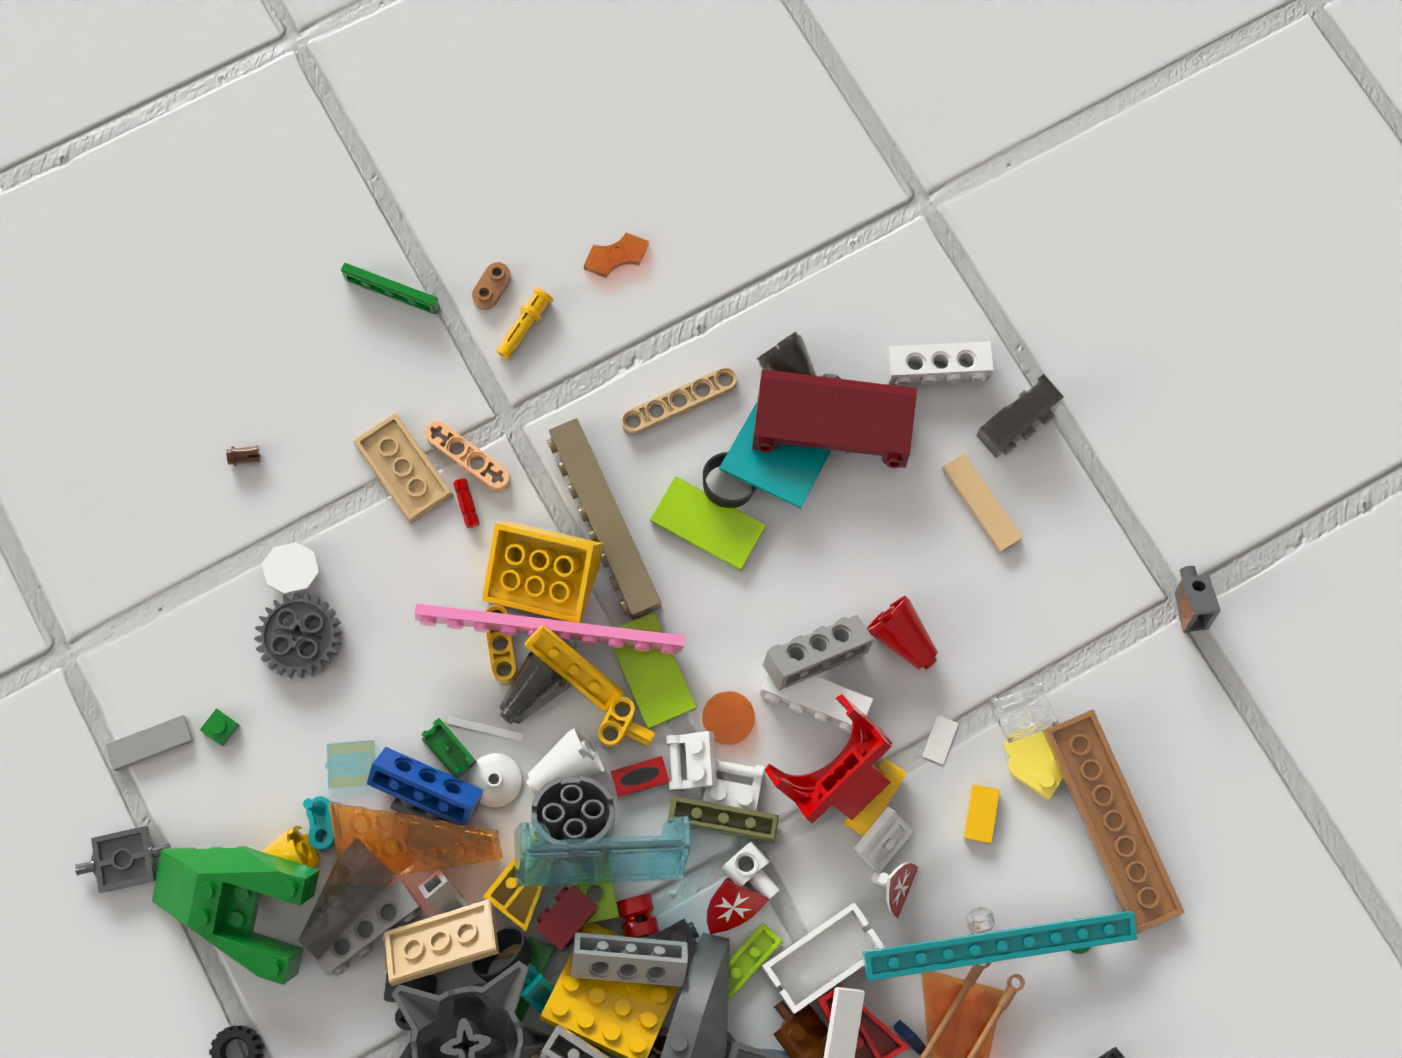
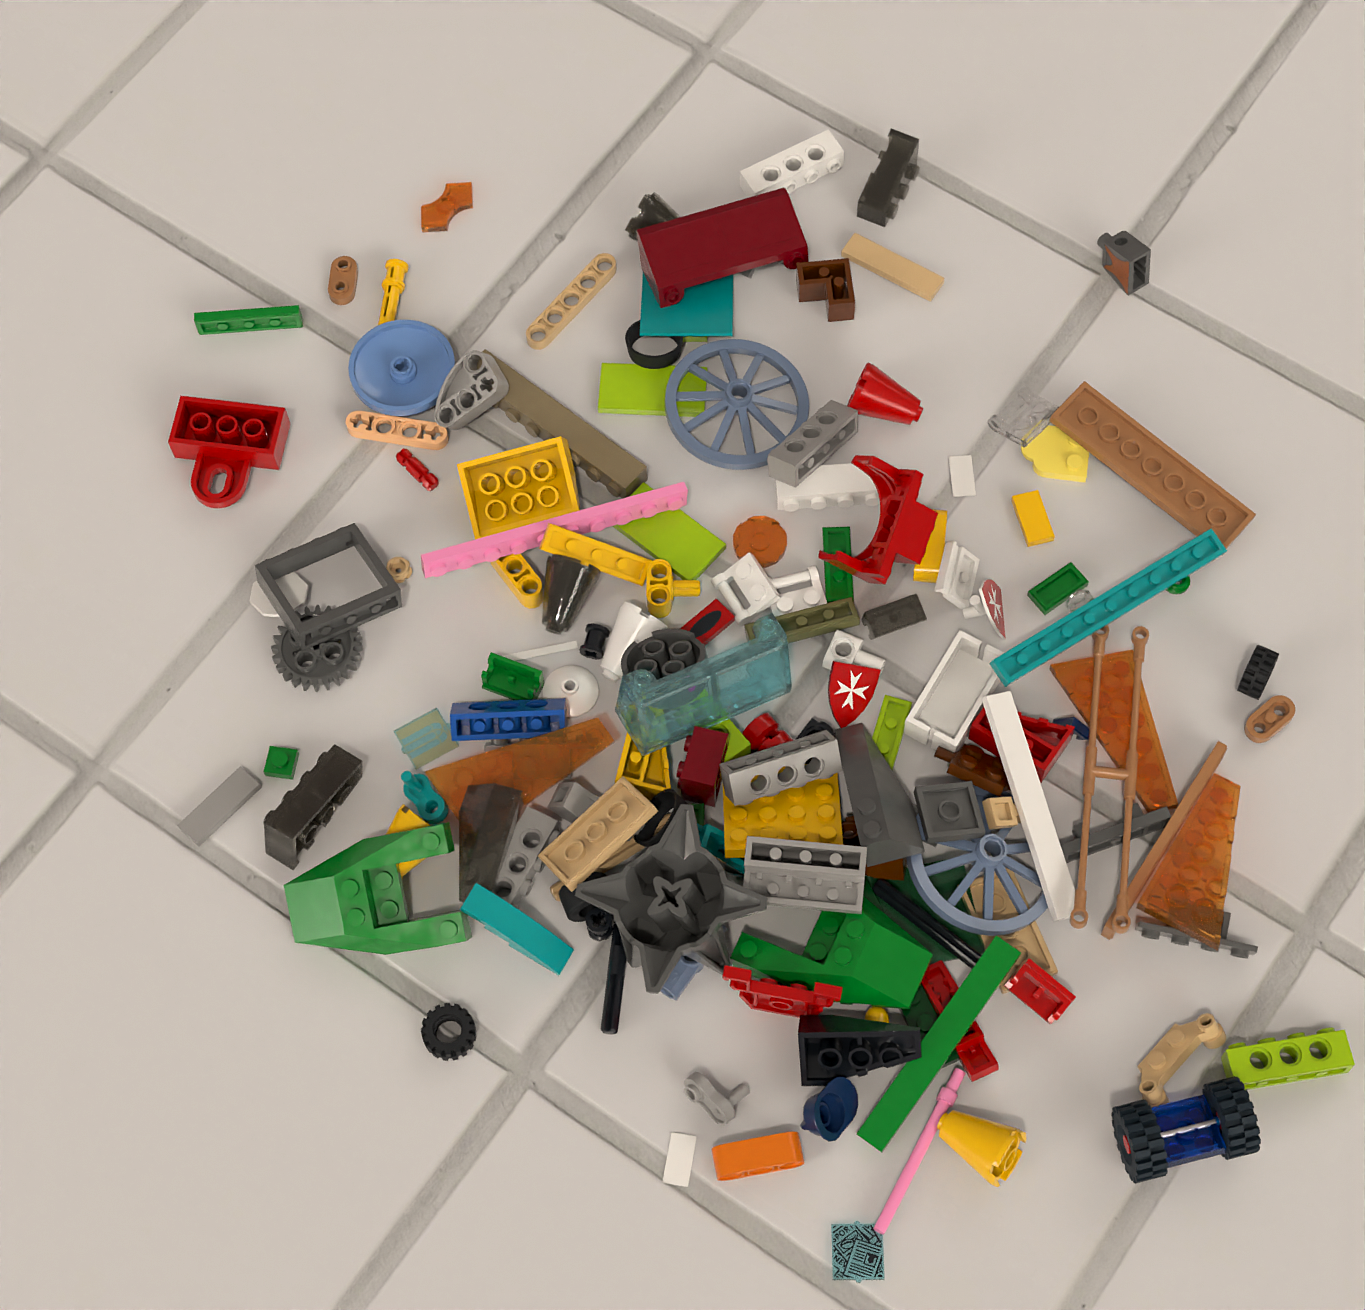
camera: 20 degrees left, 10 degrees down
(122, 859) = (247, 916): dark grey plate -> none
(222, 782) = (310, 805): none -> clear smoke wedge
(242, 455) = (179, 521): reddish brown pin -> none
(316, 401) = (227, 440): none -> red brick
(331, 623) = (343, 617): none -> dark grey window
(334, 991) = (517, 929): none -> teal slope
(398, 588) = (399, 563): none -> tan plate
(403, 468) = (340, 467): tan tile -> none
(497, 400) = (400, 367): none -> medium blue dish
(536, 745) = (594, 641): none -> black bush
(543, 445) = (465, 382): none -> light grey beam
(790, 761) = (837, 581): none -> green tile
(807, 854) = (893, 616): none -> clear smoke hinge
(820, 534) = (734, 405): none -> sand blue wheel
(915, 495) = (829, 282): none -> reddish brown brick
(969, 893) = (1057, 588): none -> green tile

